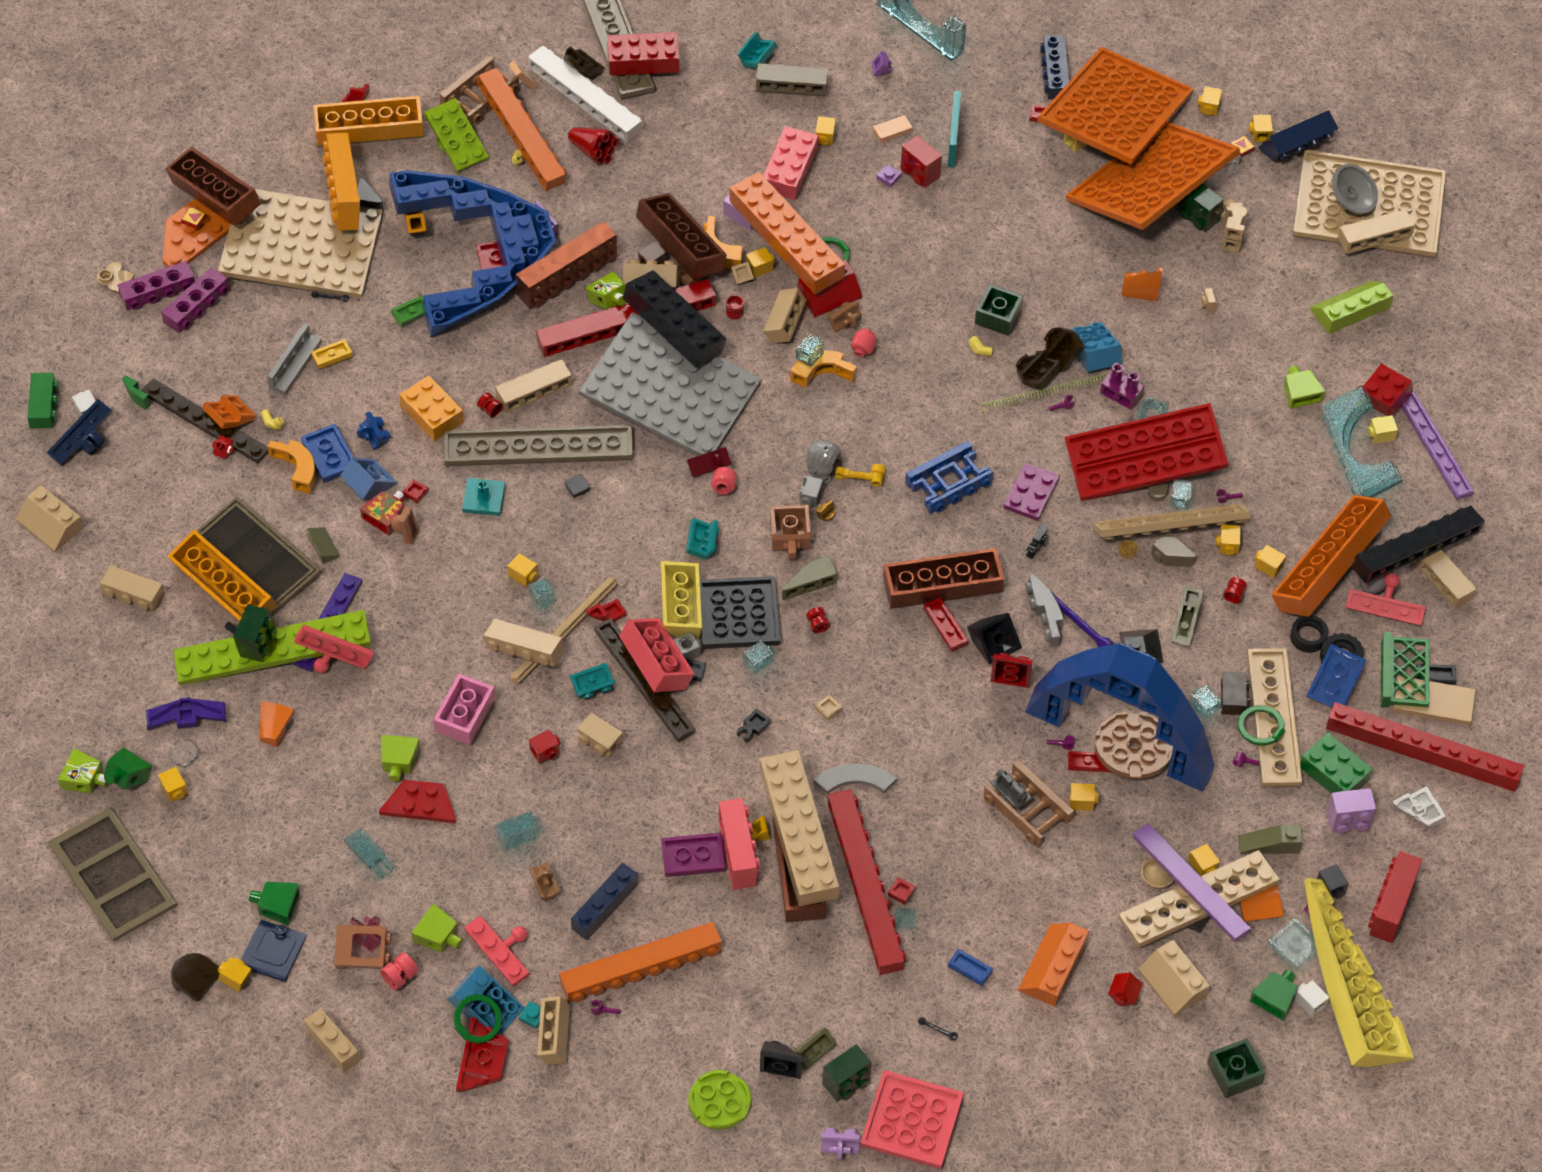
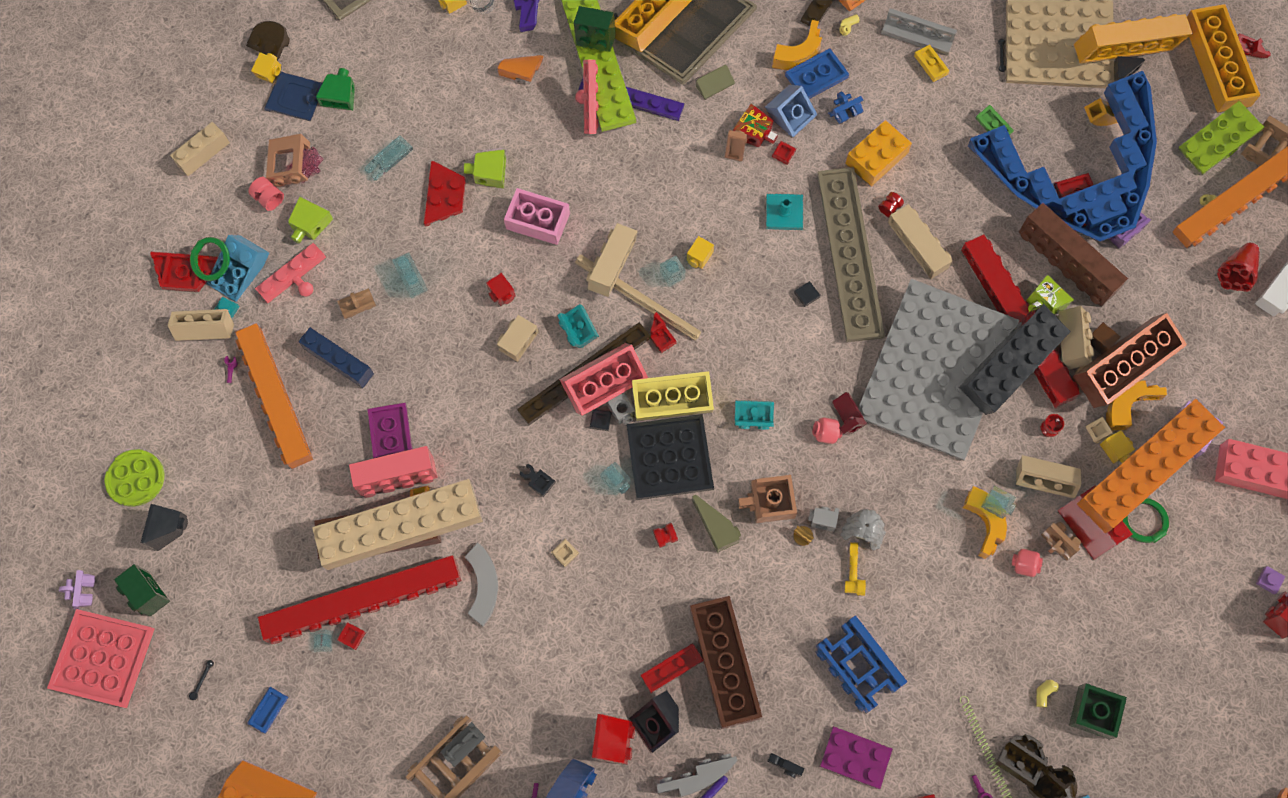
camera: 90 degrees right, 15 degrees up
(815, 1047) = (185, 560): olive slope -> none

